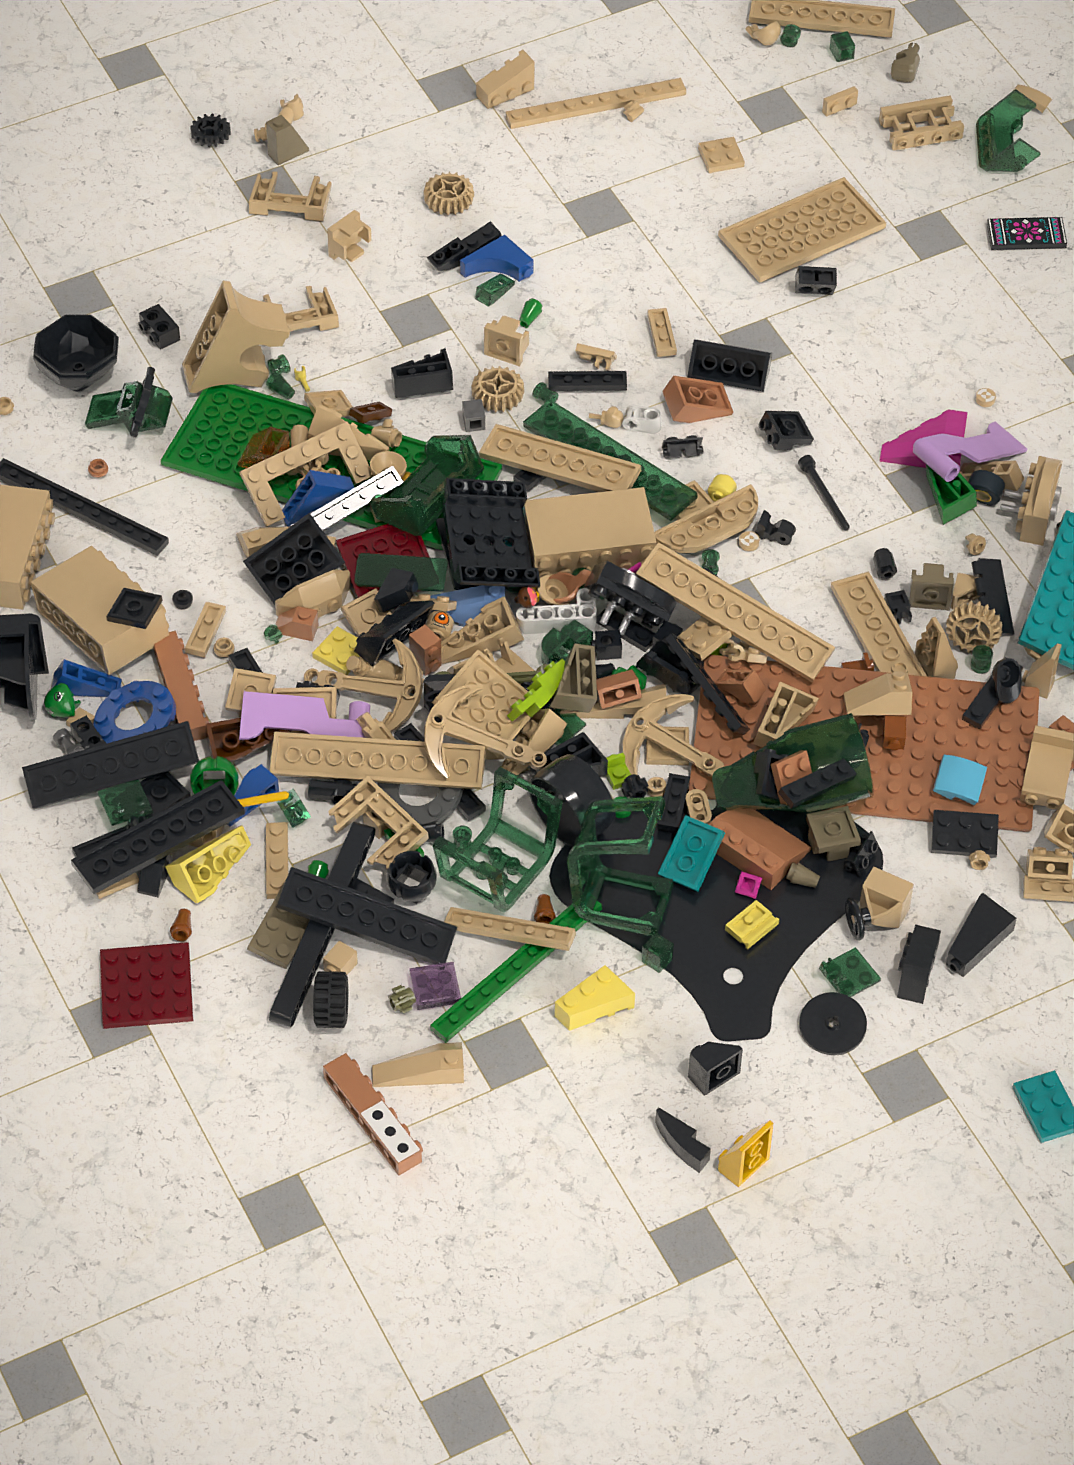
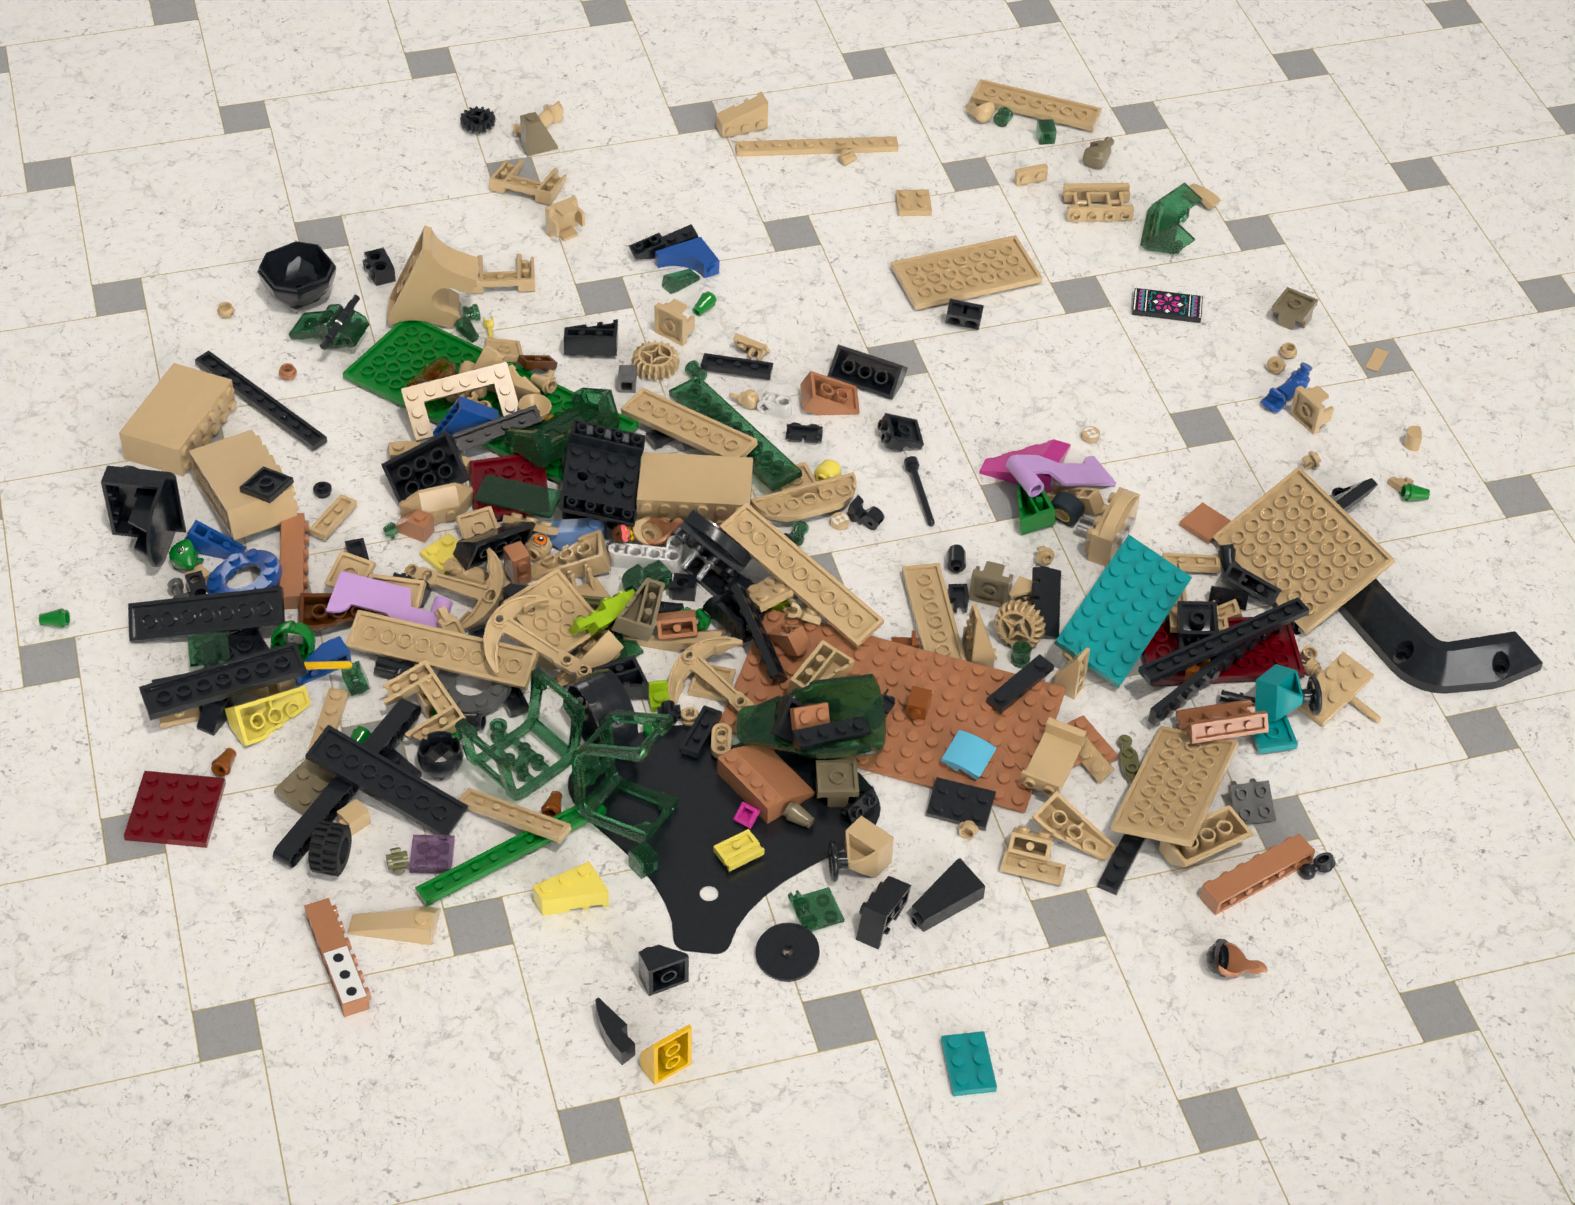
camera: 10 degrees right, 5 degrees down
(224, 647) = (344, 534): tan plate -> none
(396, 589) = (506, 509): black slope -> none
(448, 193) = (664, 198): tan gear -> none
(662, 332) = (815, 337): tan plate -> none
(691, 853) = (700, 777): teal plate -> none
(881, 696) = (914, 669): tan slope -> none
(1007, 680) = (1034, 673): black cap -> none

